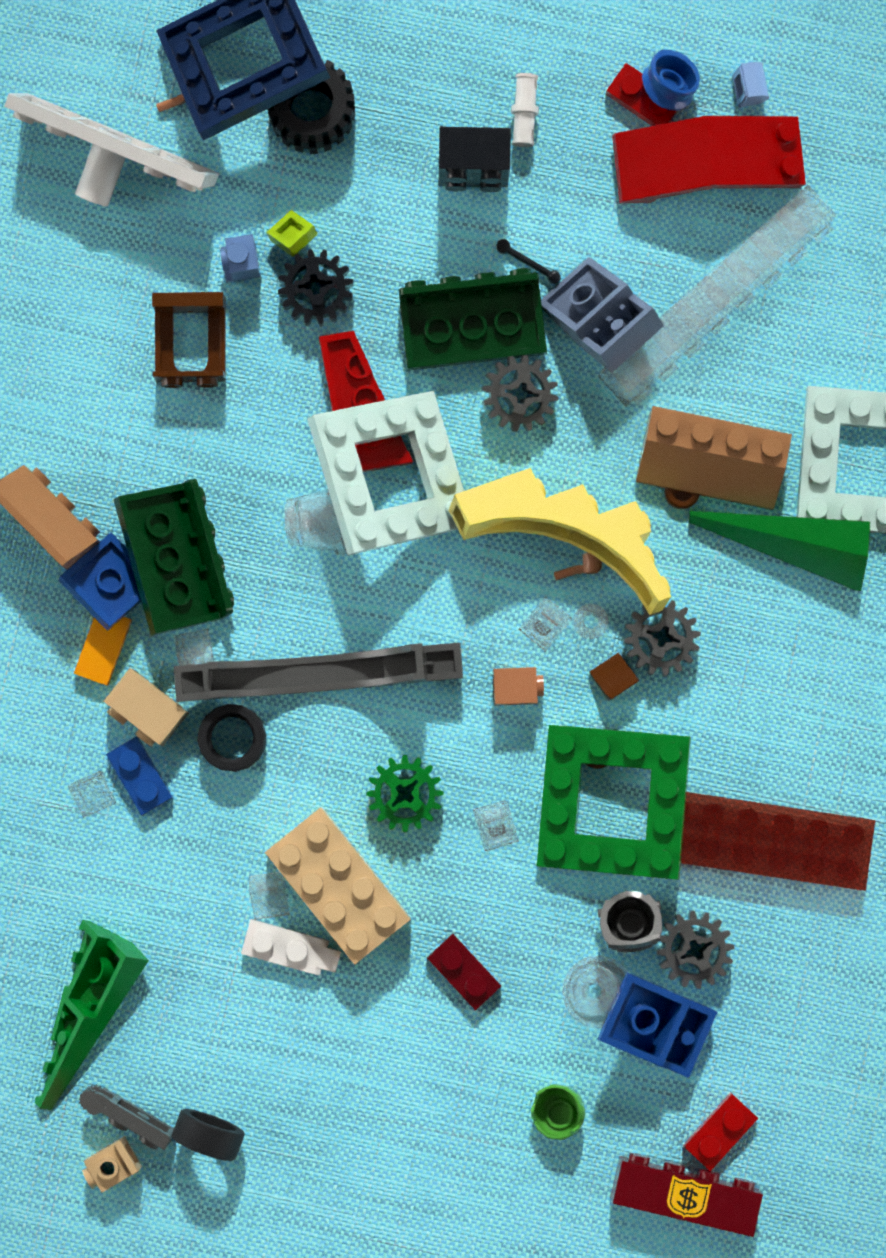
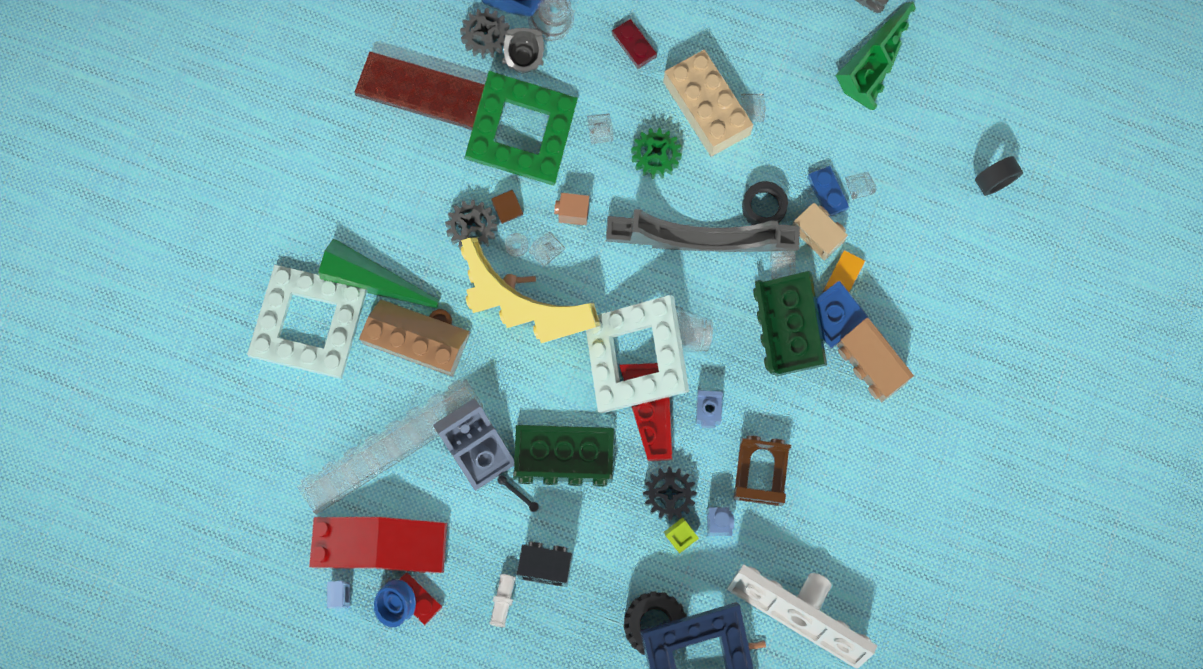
camera: 170 degrees left, 10 degrees down
(276, 429) = (710, 398): none -> medium blue brick
(289, 948) = (744, 73): white hinge -> none
(521, 376) = (546, 407): dark grey gear -> none

